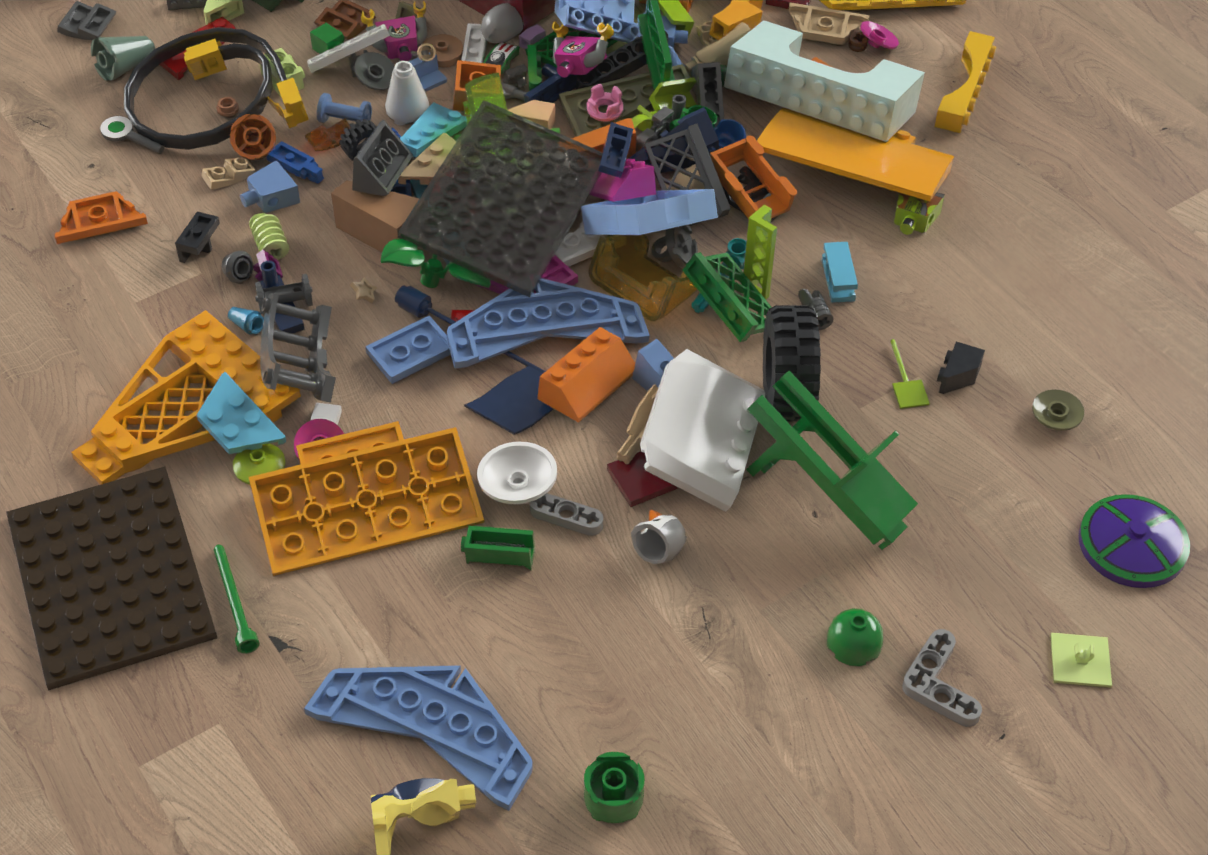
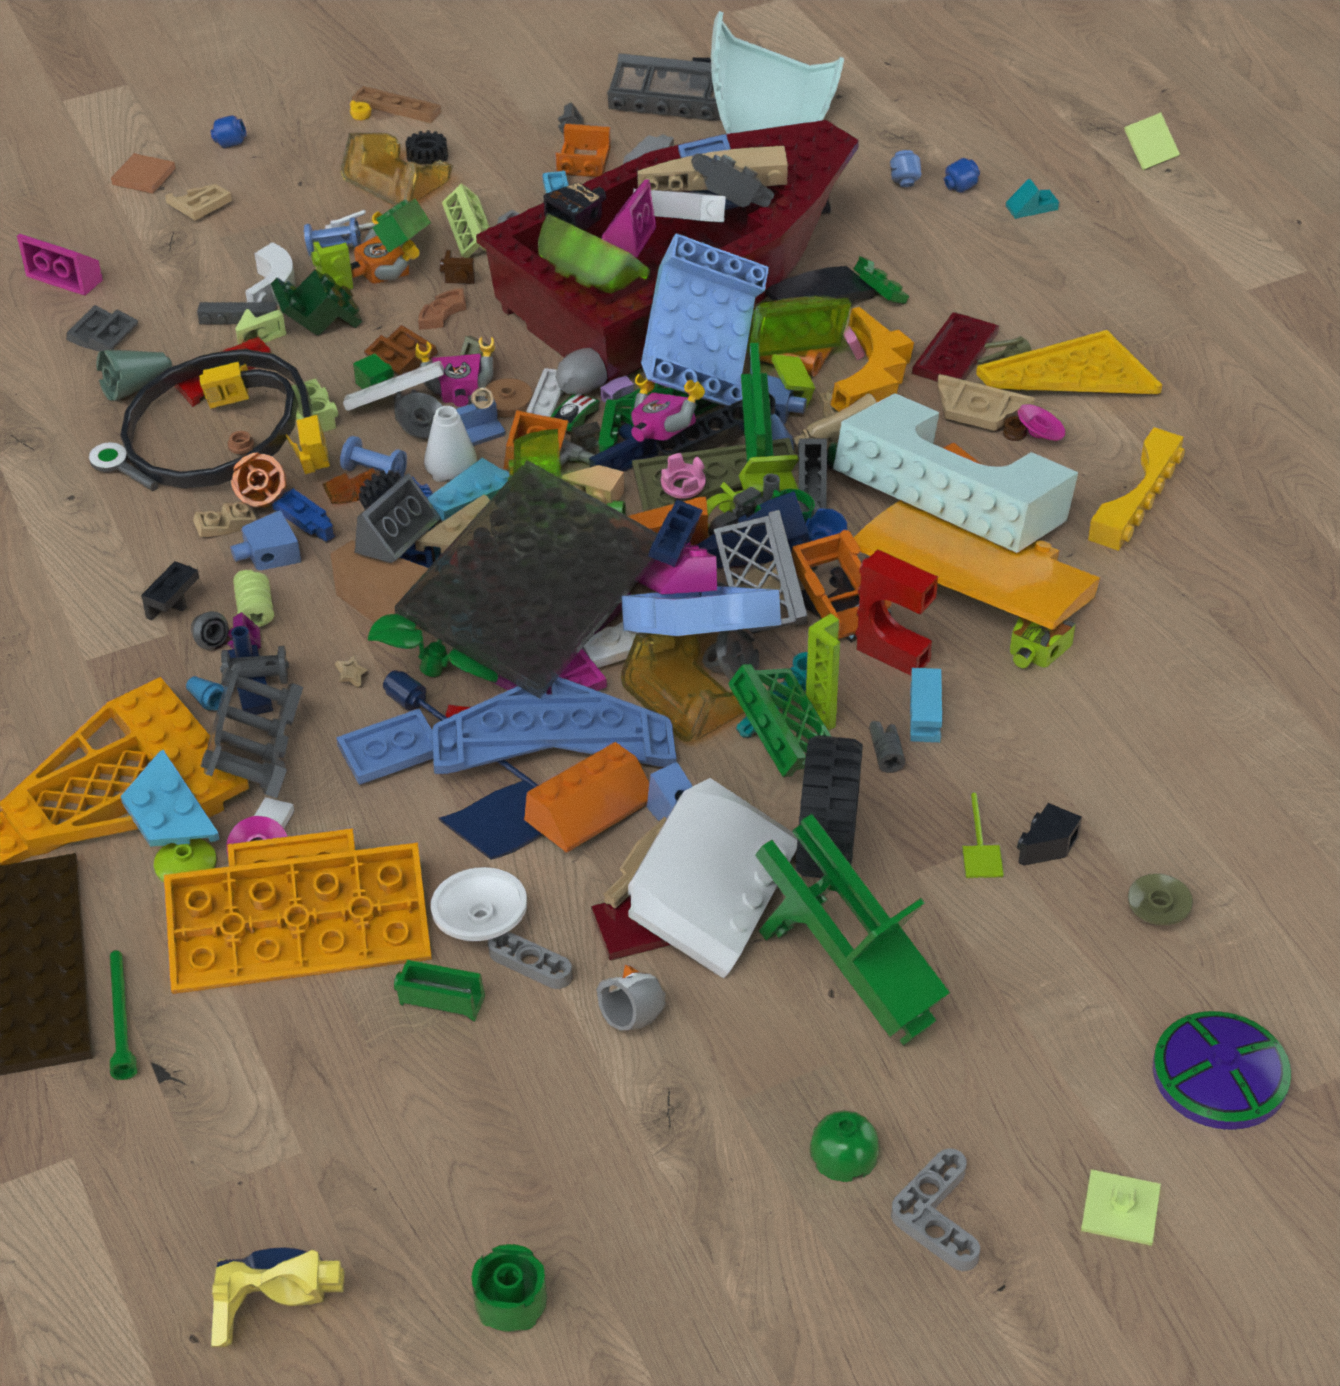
camera: 10 degrees right, 5 degrees down
(98, 216) = (63, 557): orange wing -> none
(422, 705) = (324, 1168): medium blue wing -> none
(790, 217) = (877, 631): none -> red arch

